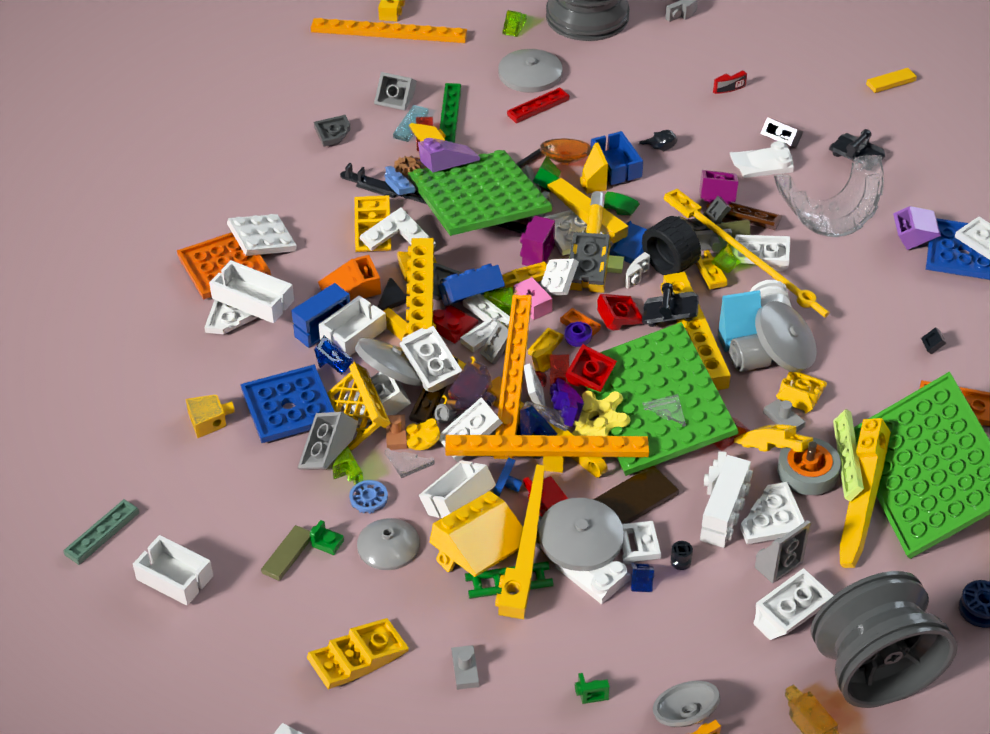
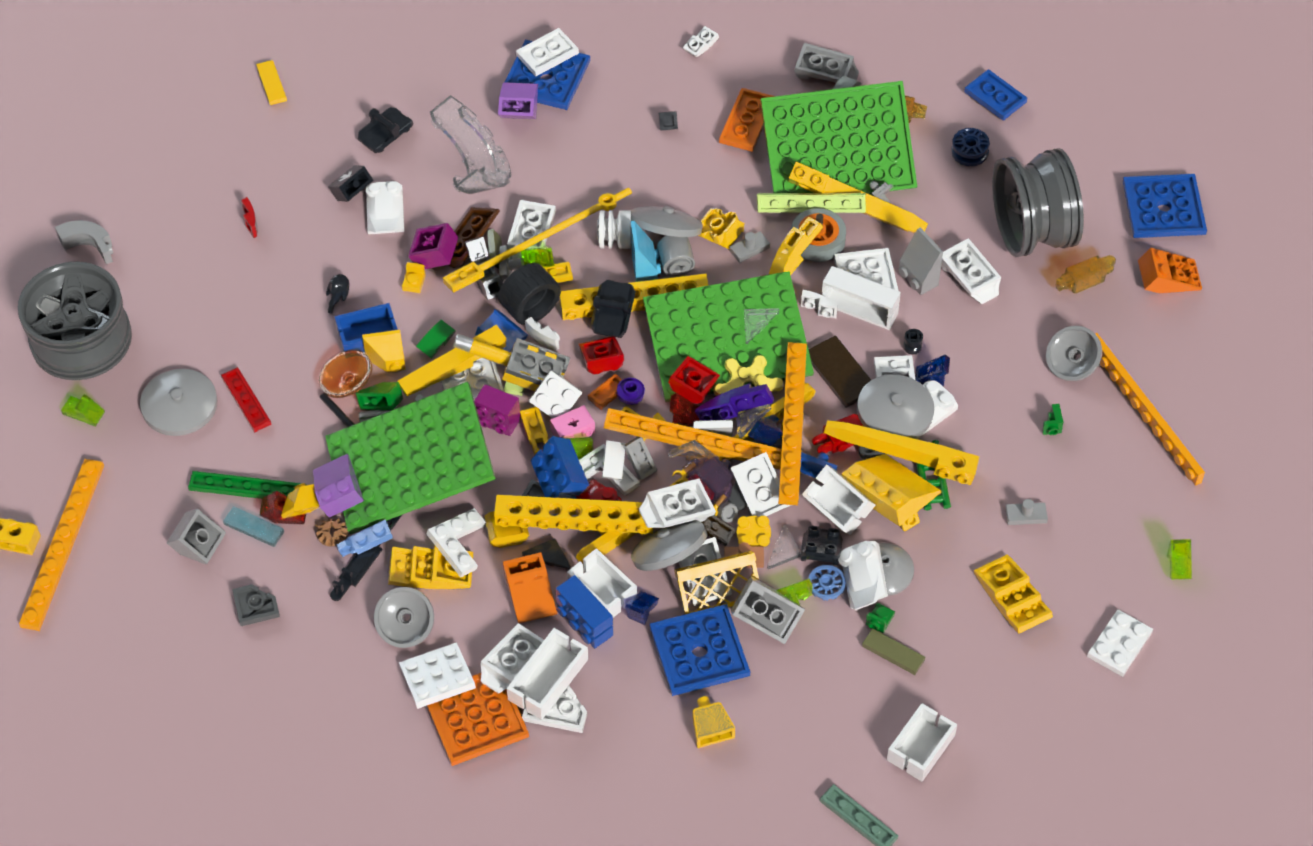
camera: 85 degrees left, 10 degrees up
(281, 269) = (508, 658): none -> white slope
(316, 207) = (390, 617): none -> light grey dish
(370, 517) = (863, 574): none -> white slope
(402, 482) = (821, 545): none -> black shield
(487, 320) = (613, 460): none -> white slope
(498, 374) = (691, 450): none -> clear tile
(688, 186) = (414, 277): none -> yellow bracket
(882, 517) = (879, 192): none -> light grey piece

